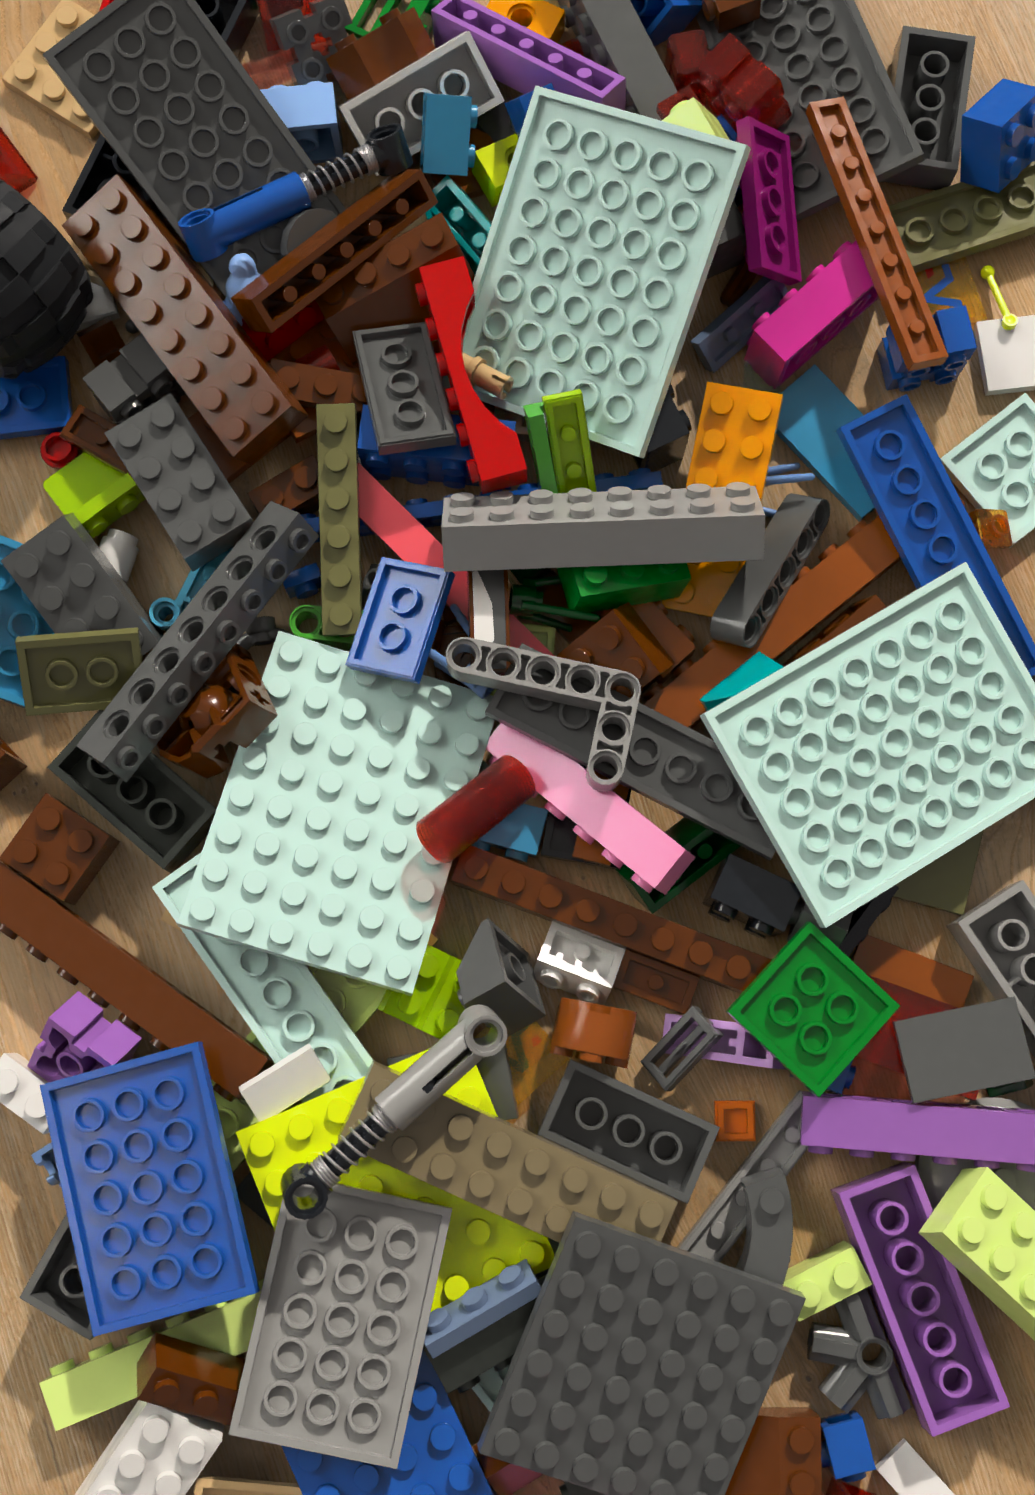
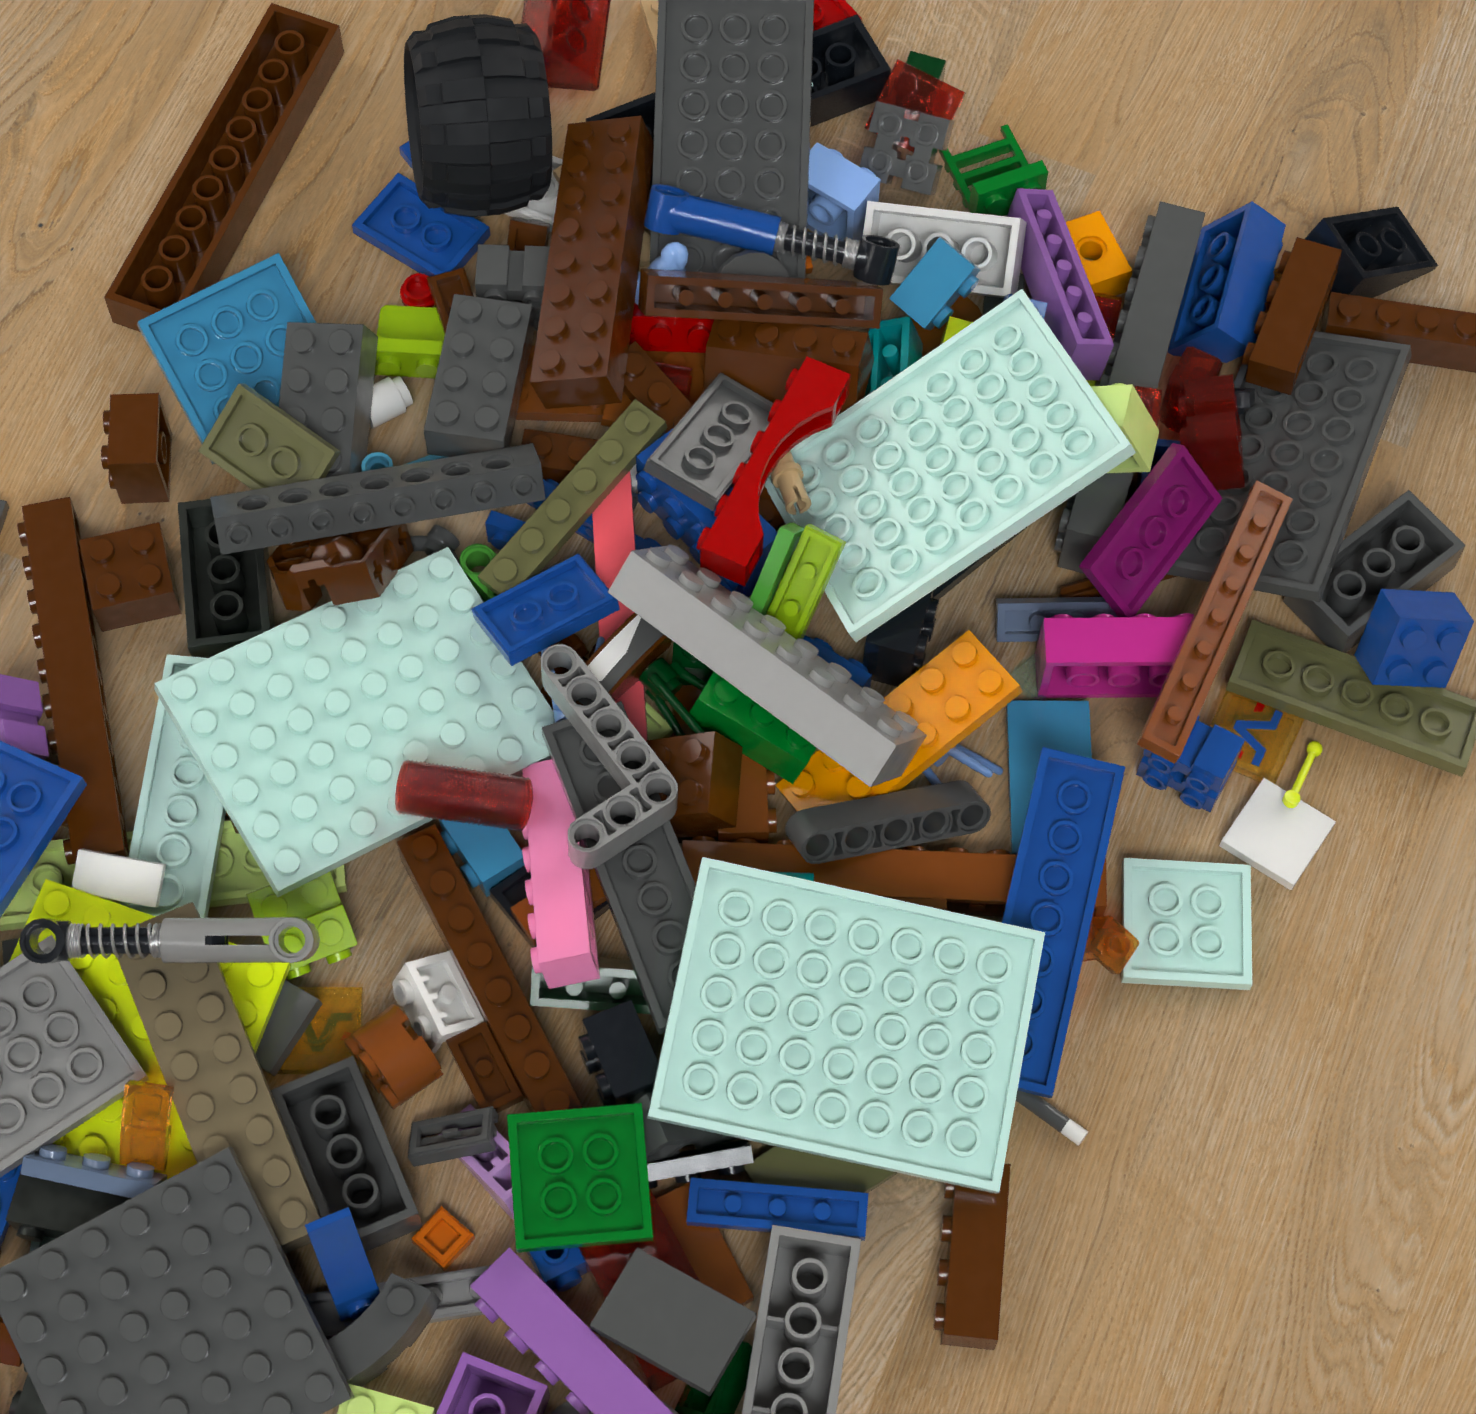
camera: 40 degrees right, 15 degrees down
(379, 53) = (941, 185): reddish brown brick -> none
(486, 1243) = (145, 1123): none -> clear orange slope
(500, 976) = (359, 949): dark grey slope -> none
(713, 1212) = (343, 1263): none -> blue slope
(942, 905) = (762, 1205): none -> blue plate

